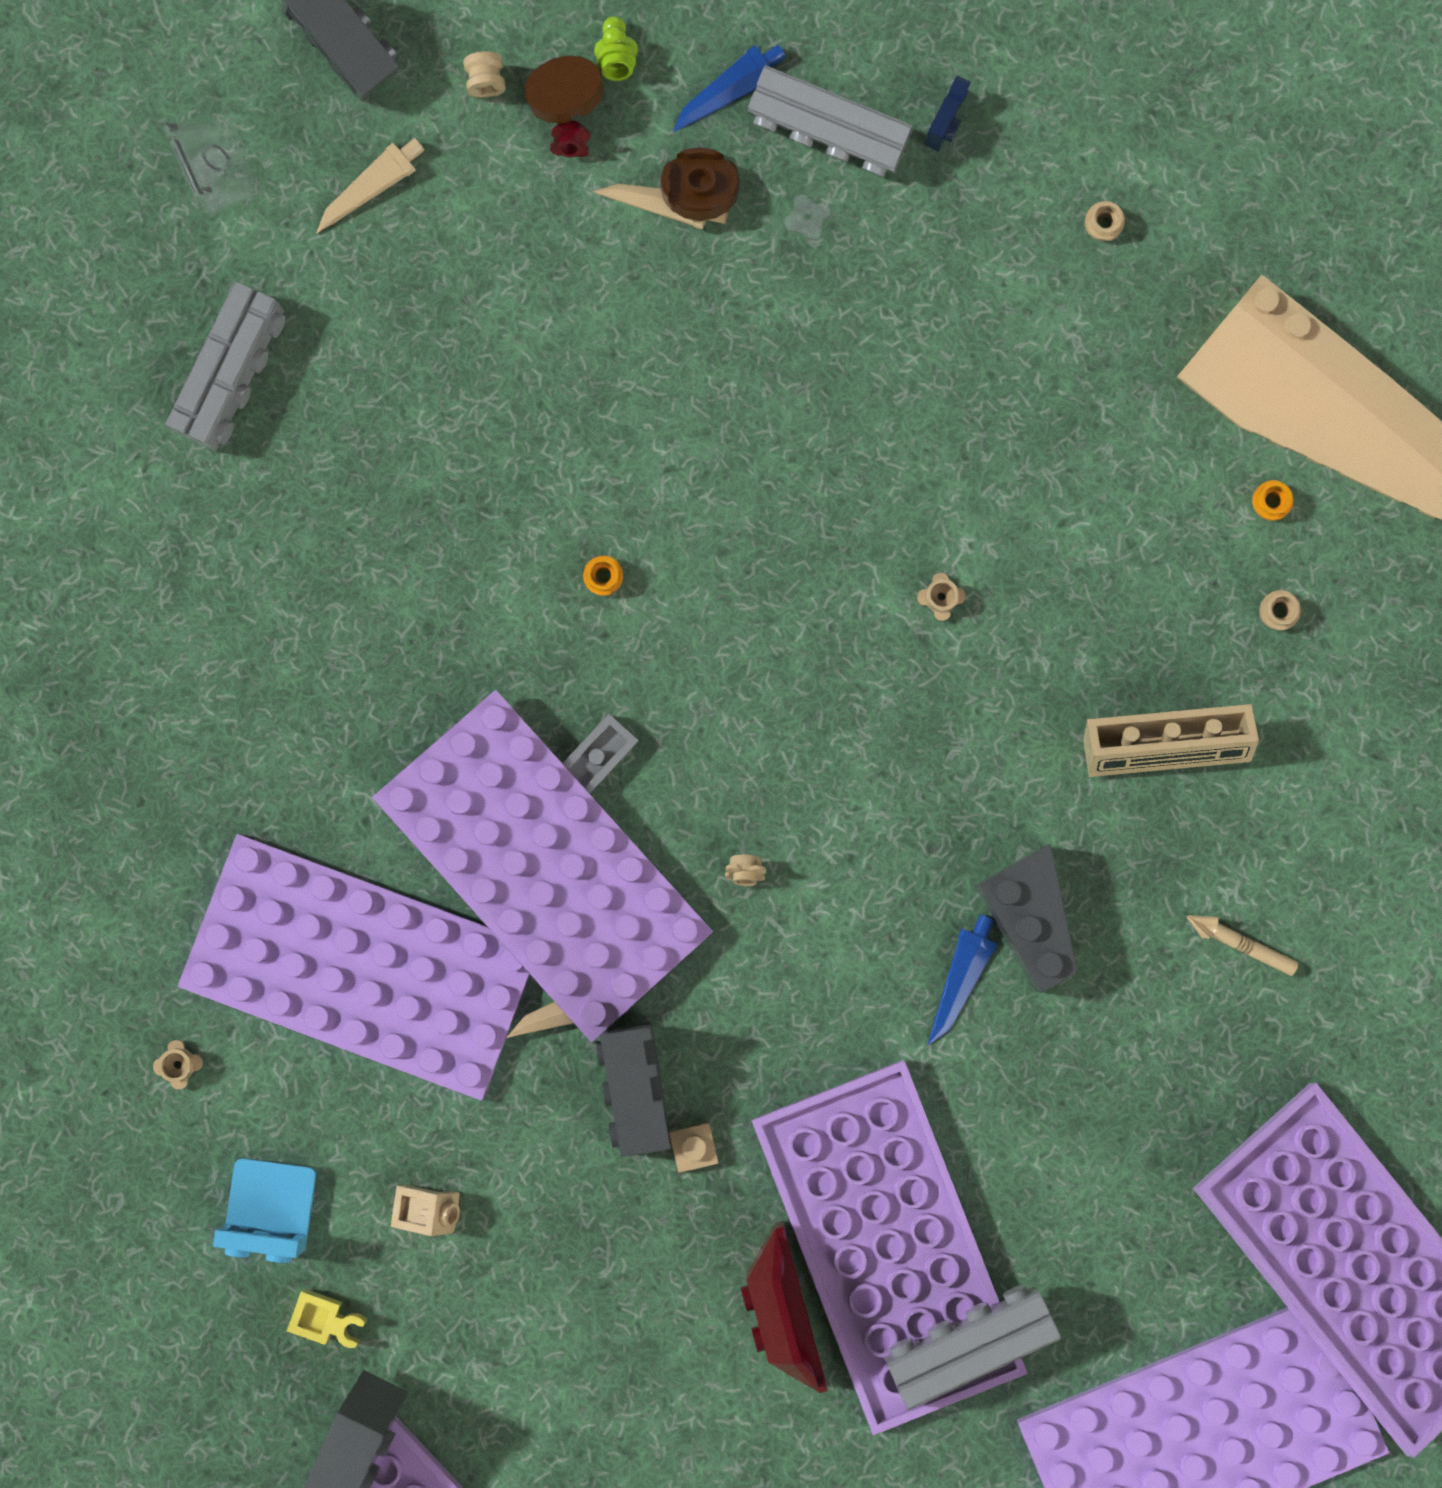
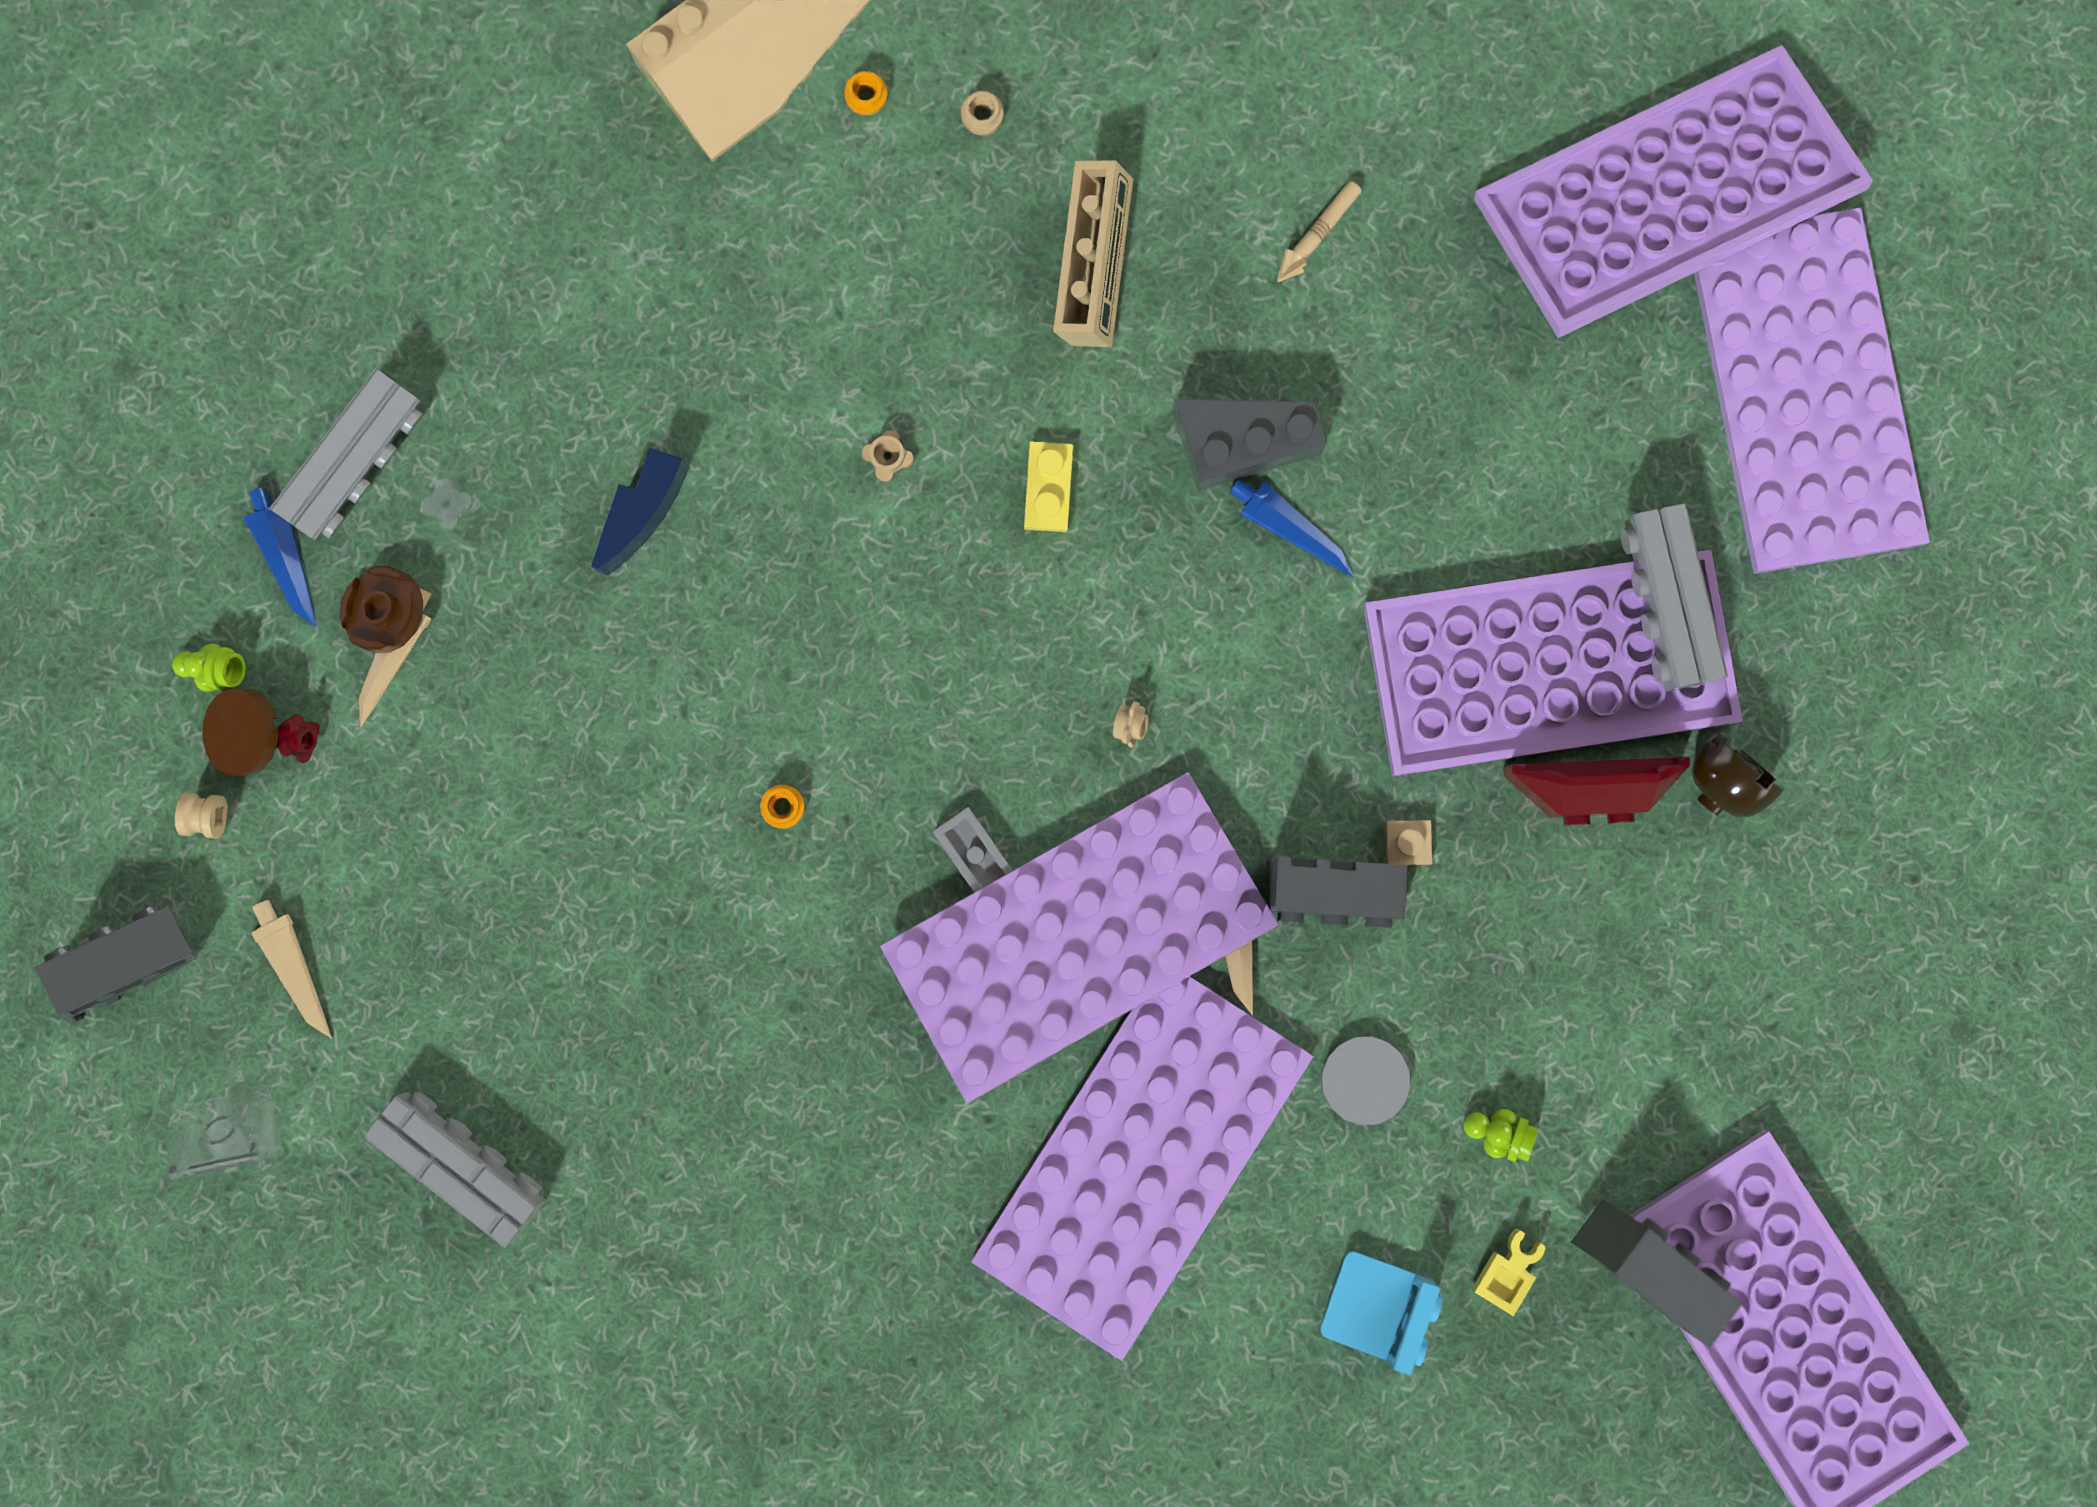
camera: 75 degrees left, 0 degrees up
(167, 1069) = (1205, 1391): tan plate -> none
(425, 1210) = (1416, 1141): tan bracket -> none
(447, 1288) = (1502, 1134): none -> lime piece
(470, 1152) = (1365, 1080): none -> light grey tile
(816, 1436) = (1732, 780): none -> dark brown cylinder
(838, 387) = (640, 510): none -> dark blue slope
(945, 123) = (381, 334): dark blue plate -> none
(946, 748) = (1048, 486): none -> light yellow plate
(1107, 210) = (519, 186): tan plate -> none

